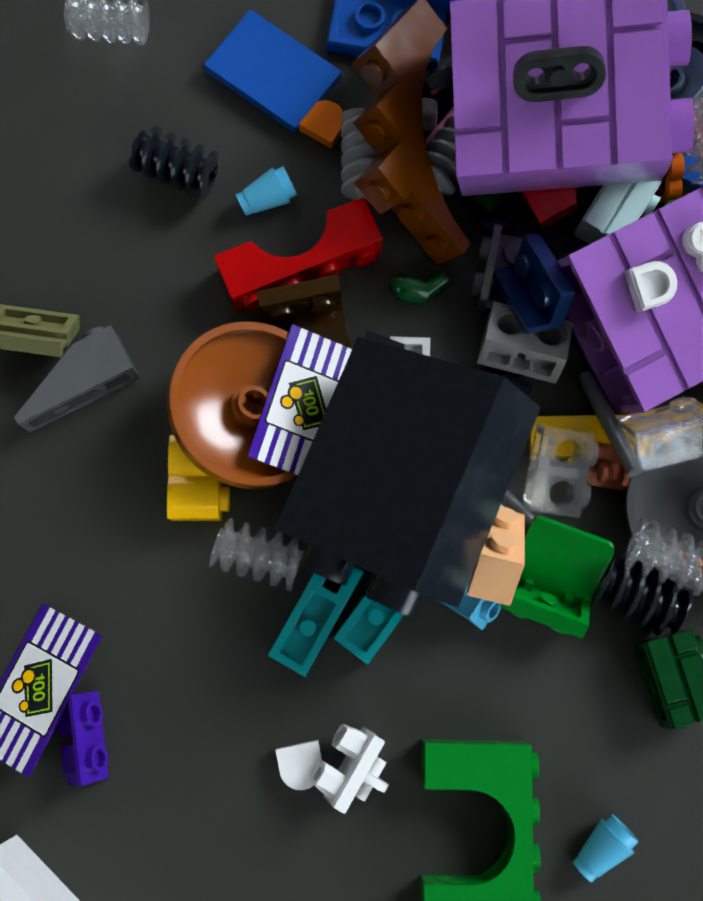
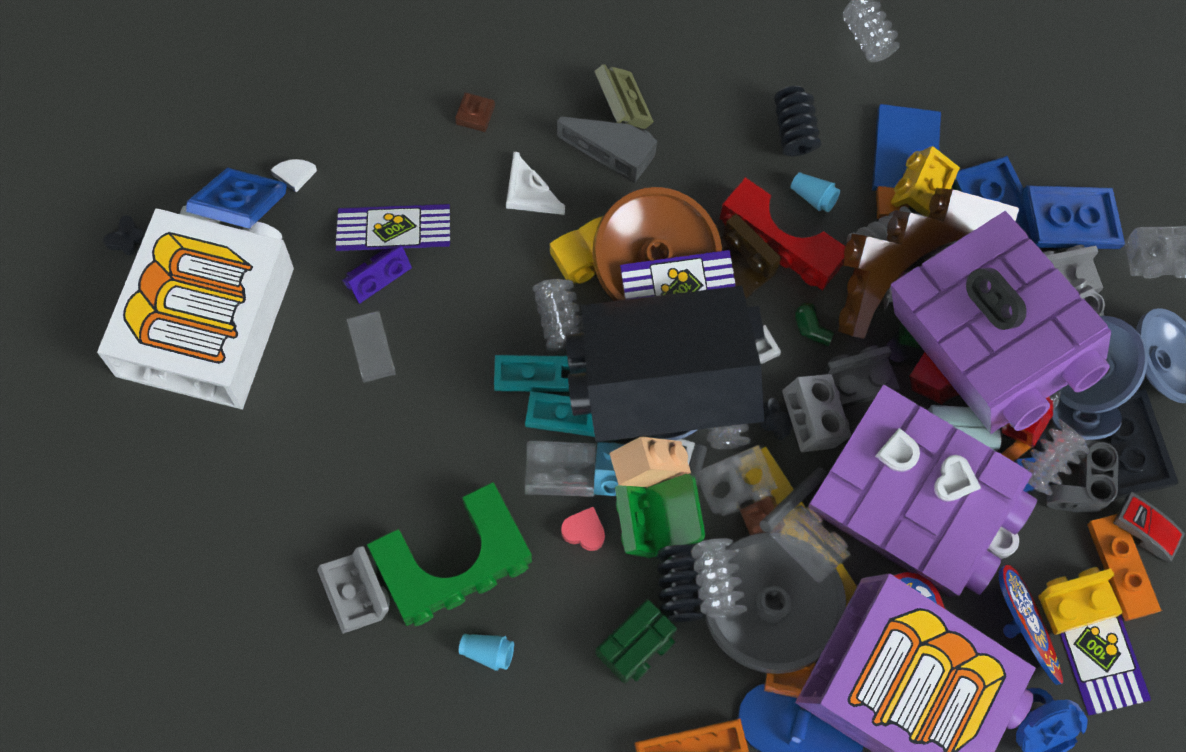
camera: 60 degrees right, 10 degrees down
(81, 502) = (529, 191): none -> white tile
(171, 793) = (371, 346): none -> clear tile
(298, 763) = (434, 418): white tile -> none
(326, 74) = (924, 174): none -> yellow bracket
(357, 772) = (434, 445): white hips -> none
(443, 655) = (560, 468): none -> clear bracket
(520, 663) = (584, 529): none -> coral tile
(535, 287) = (854, 390): dark blue bracket -> none

